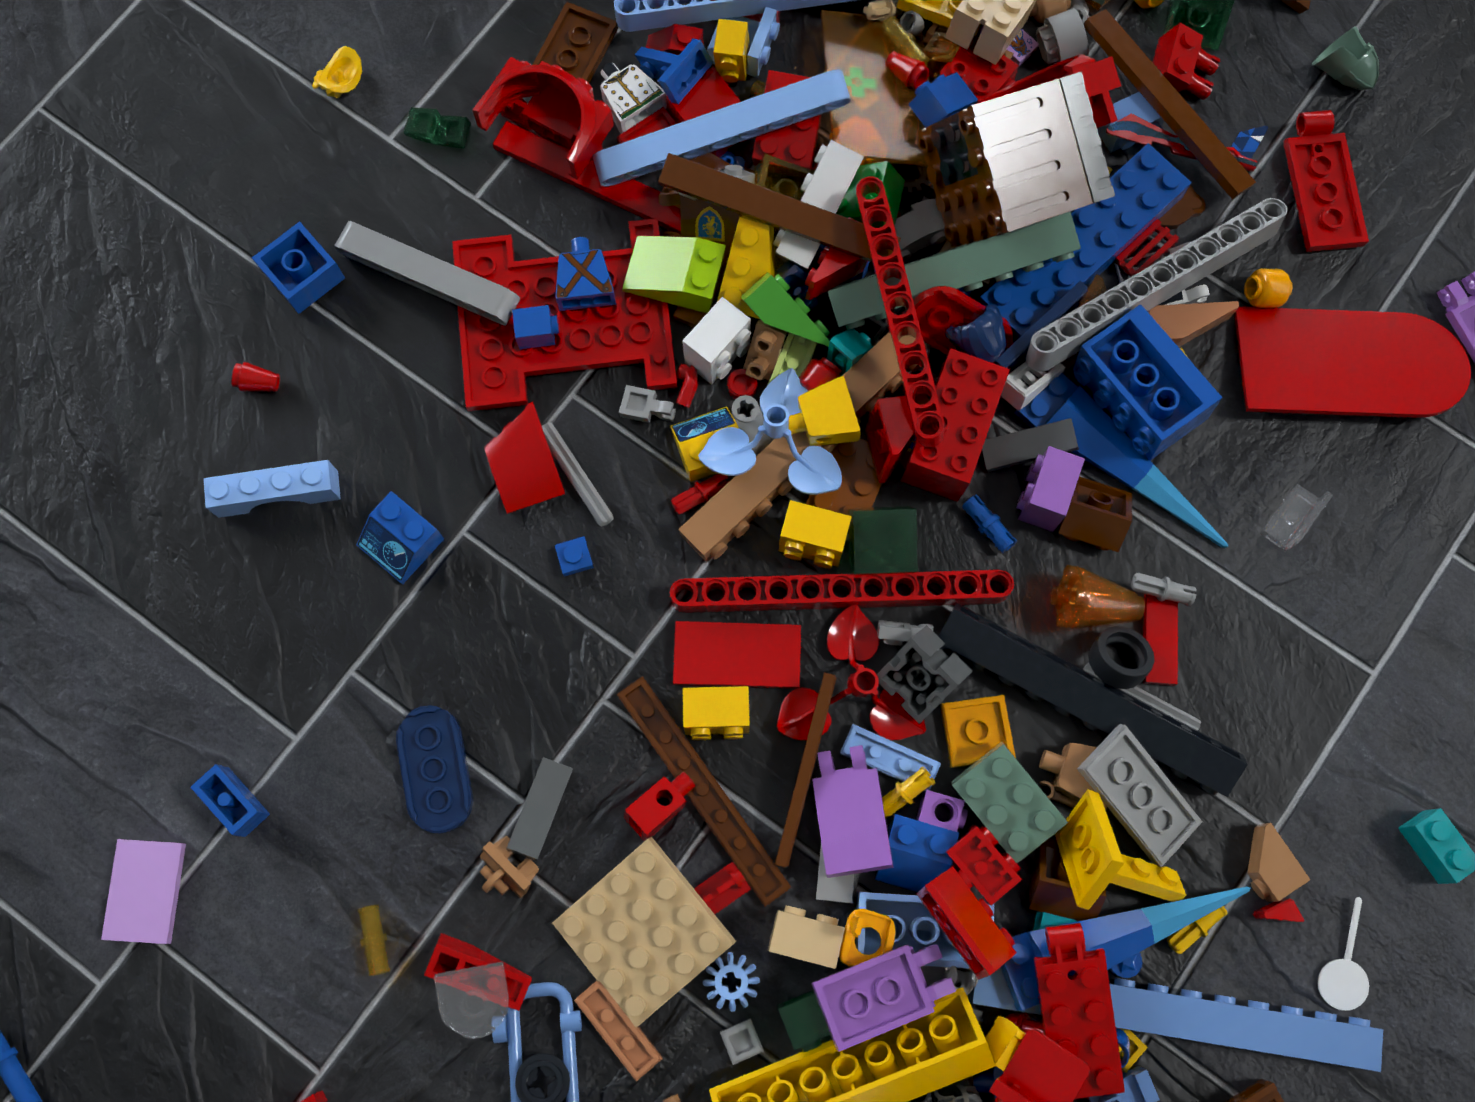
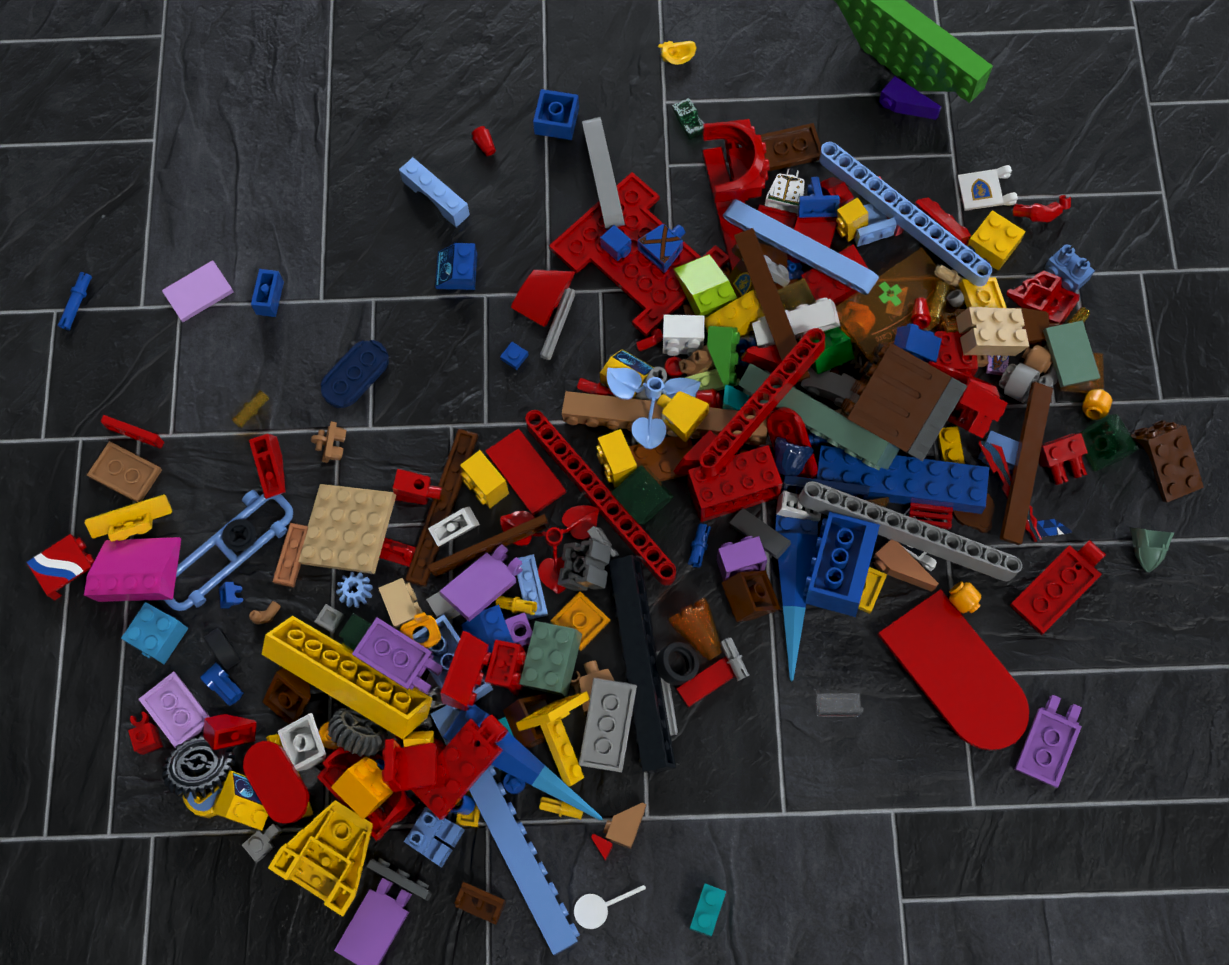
camera: 55 degrees right, 5 degrees down
(473, 999) = (254, 471): clear tile -> none
(539, 809) = (371, 435): dark grey tile -> none
(642, 403) = (621, 326): light grey plate -> none
(746, 794) = (453, 526): none -> white slope

